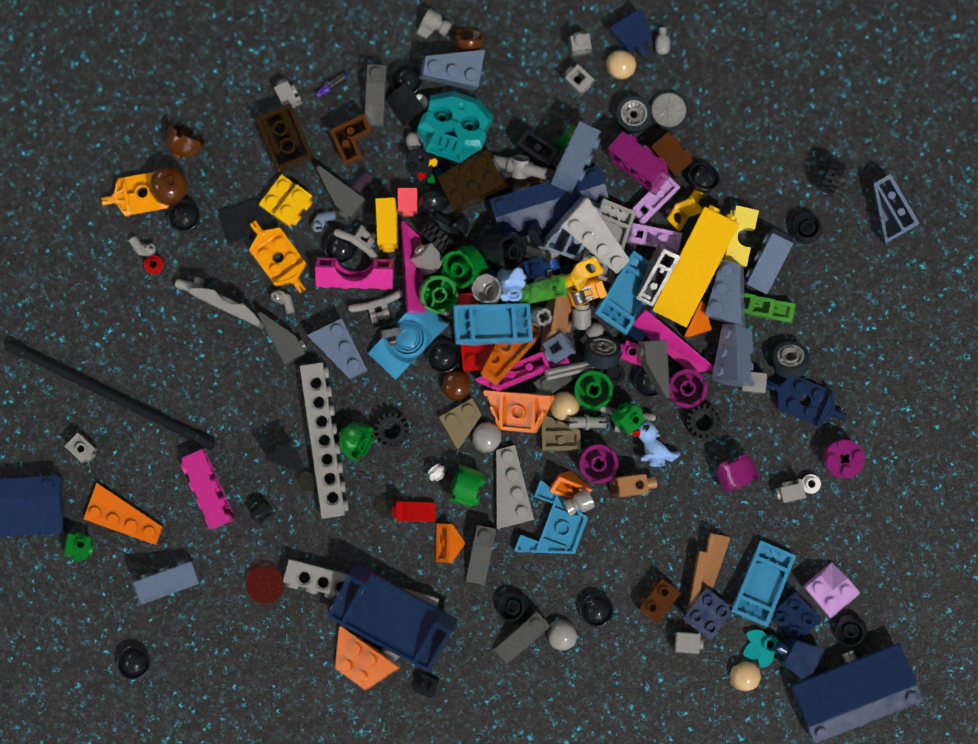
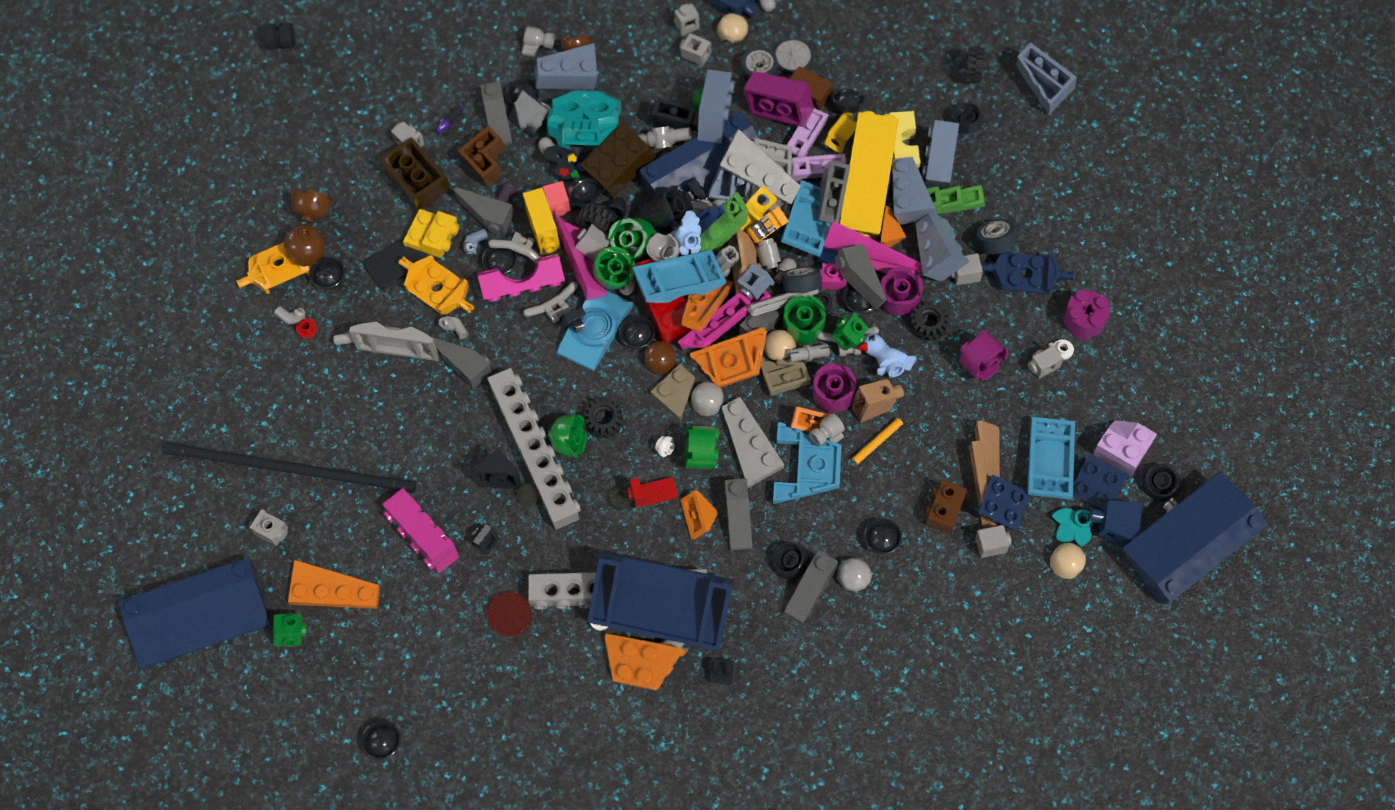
camera: 15 degrees left, 20 degrees down
(167, 581) = (398, 639): sand blue wedge -> none
(340, 348) = (525, 351): sand blue wedge -> none
(621, 520) = (877, 441): none -> light orange bar

